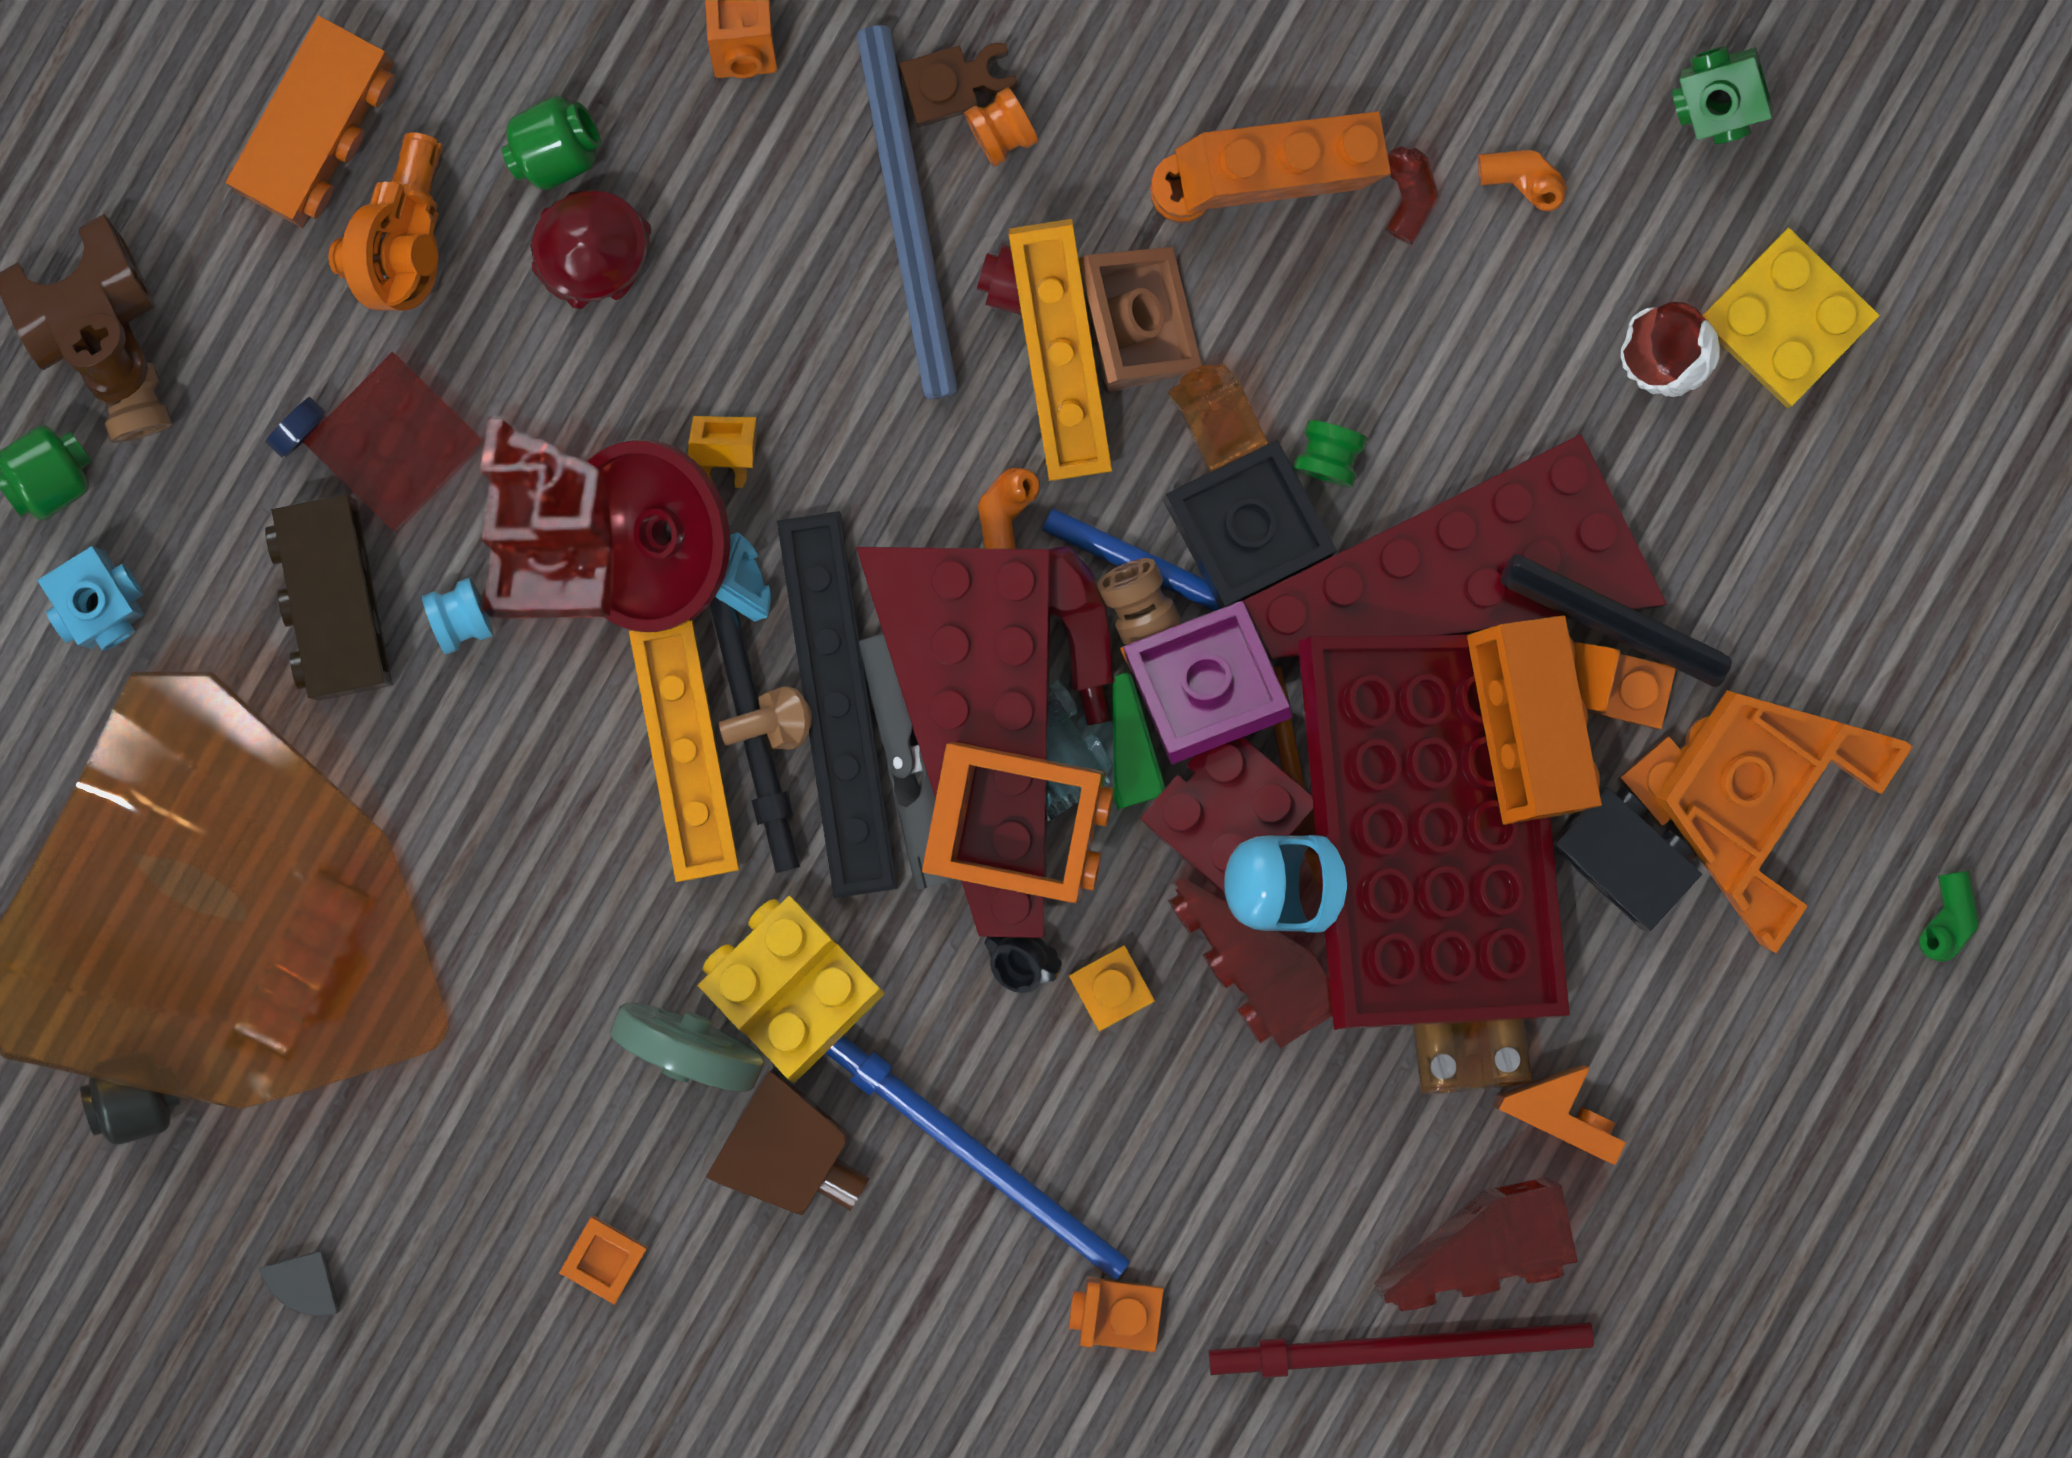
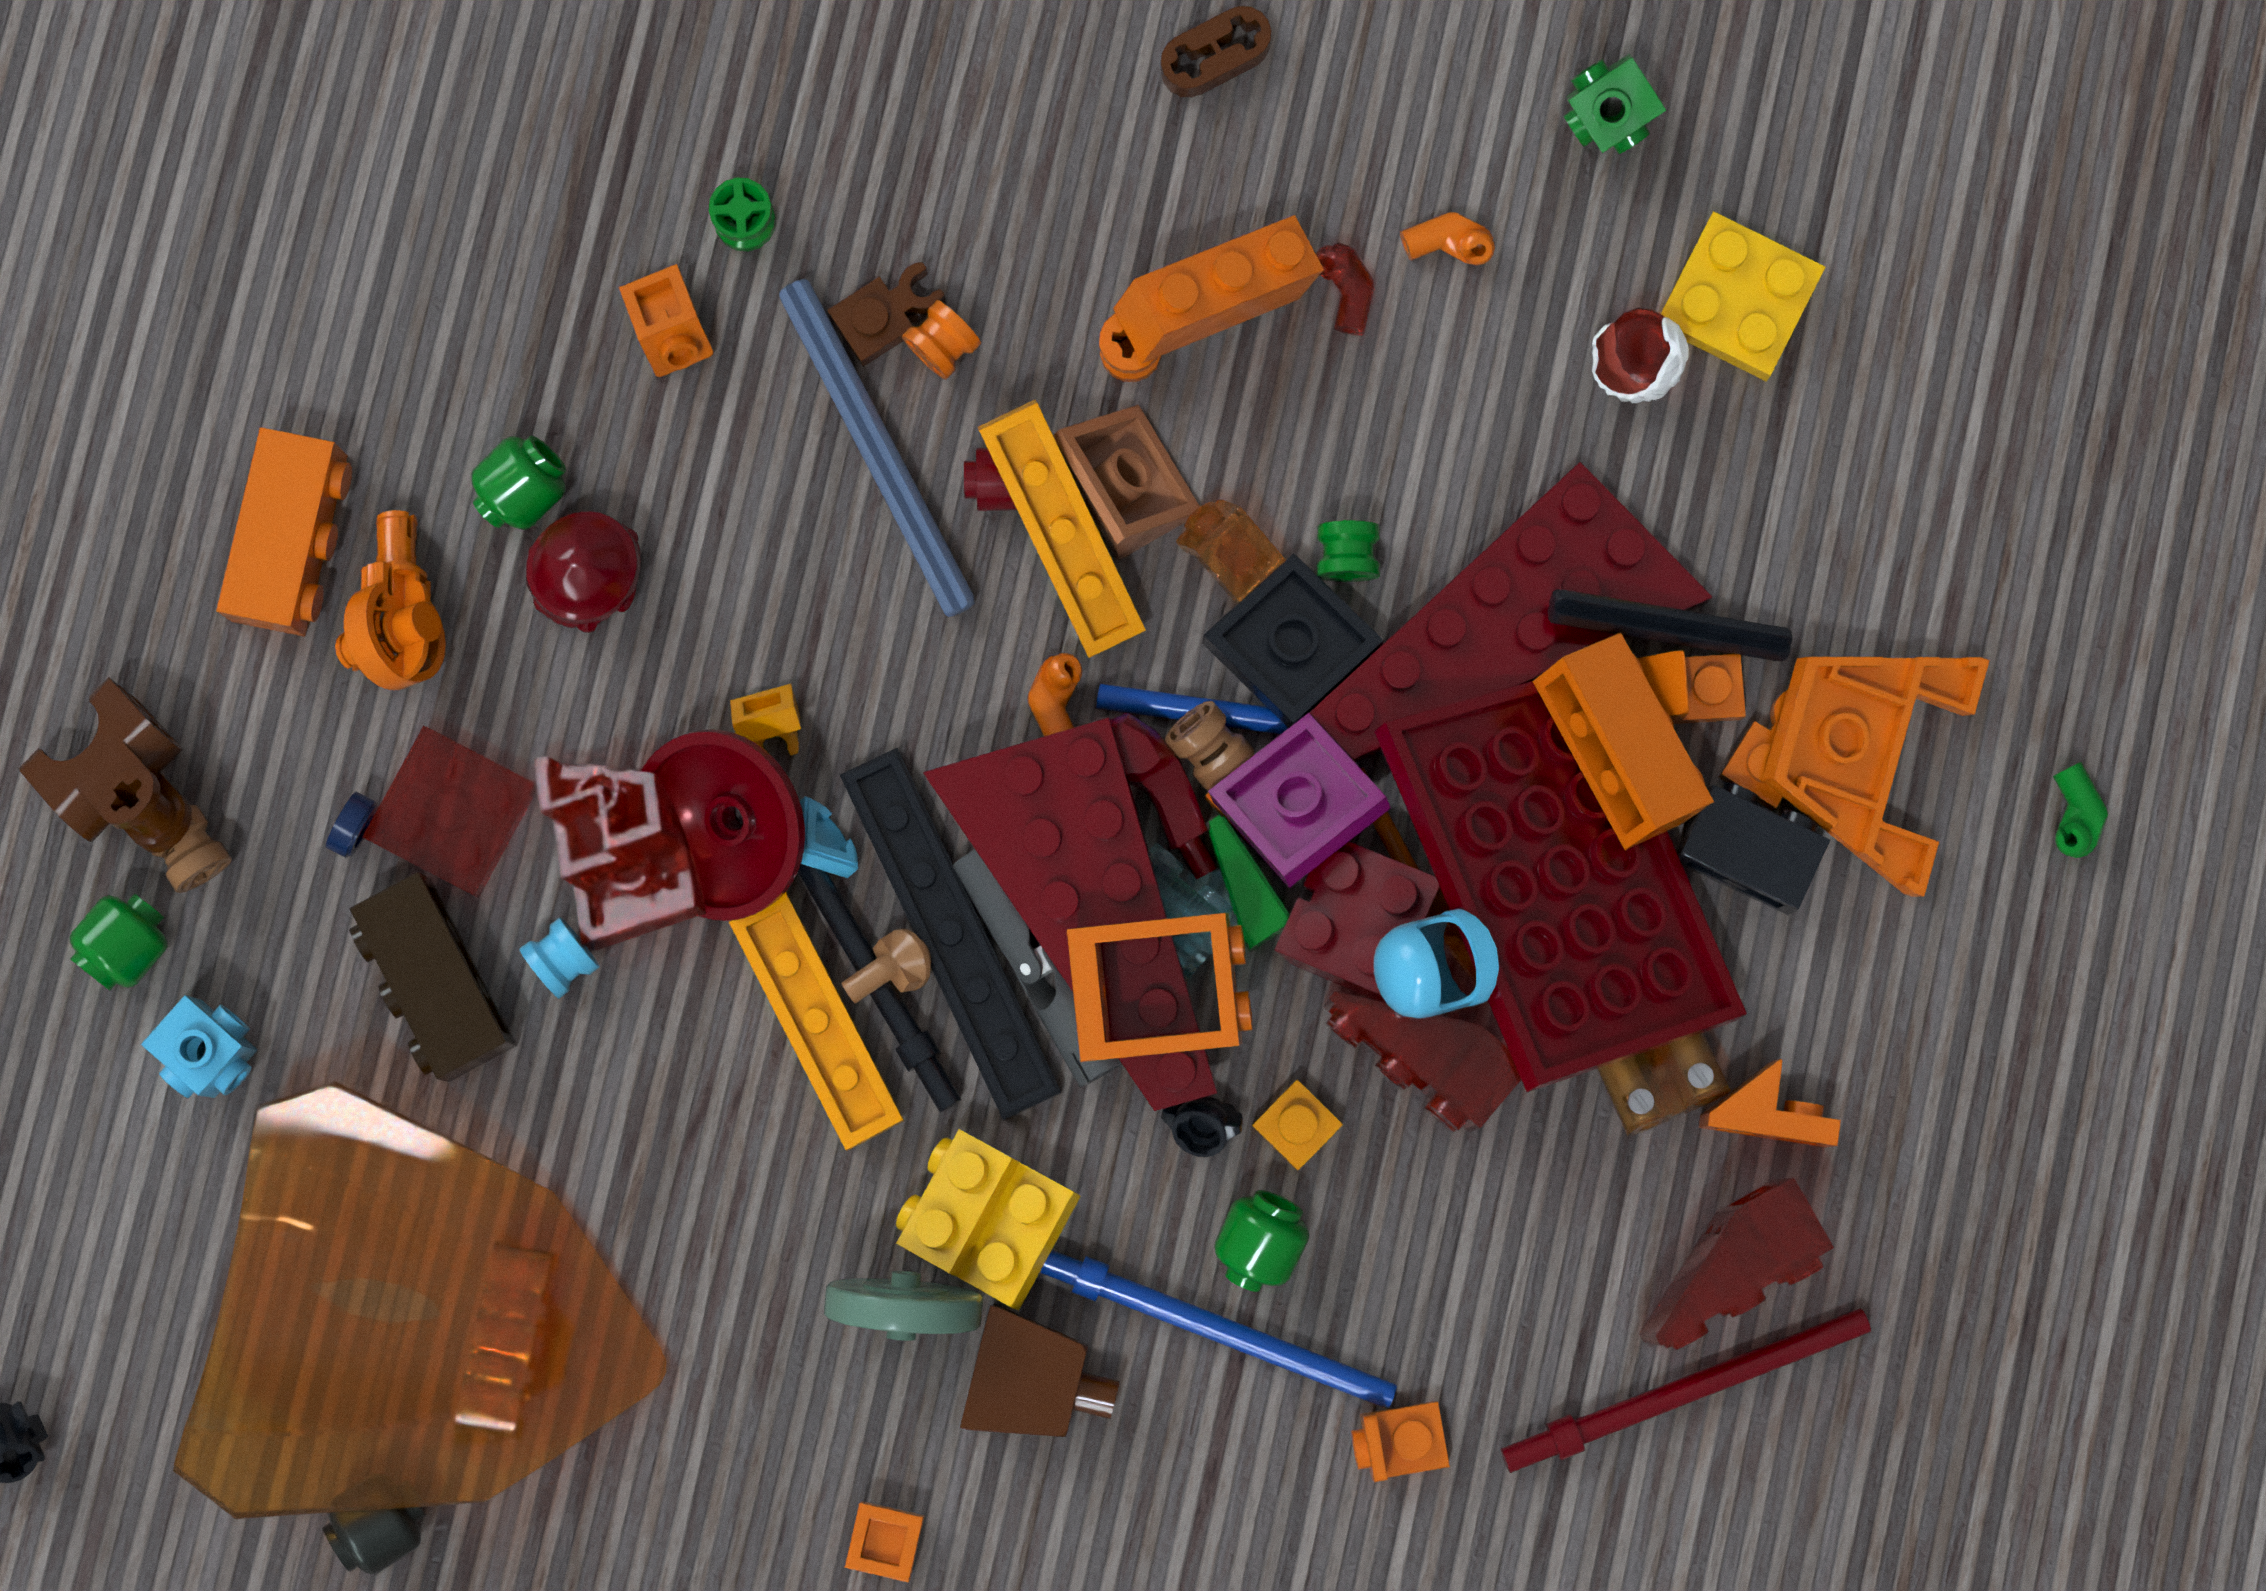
camera: 10 degrees left, 5 degrees down
(1043, 1087) = (1261, 1240): none -> green head

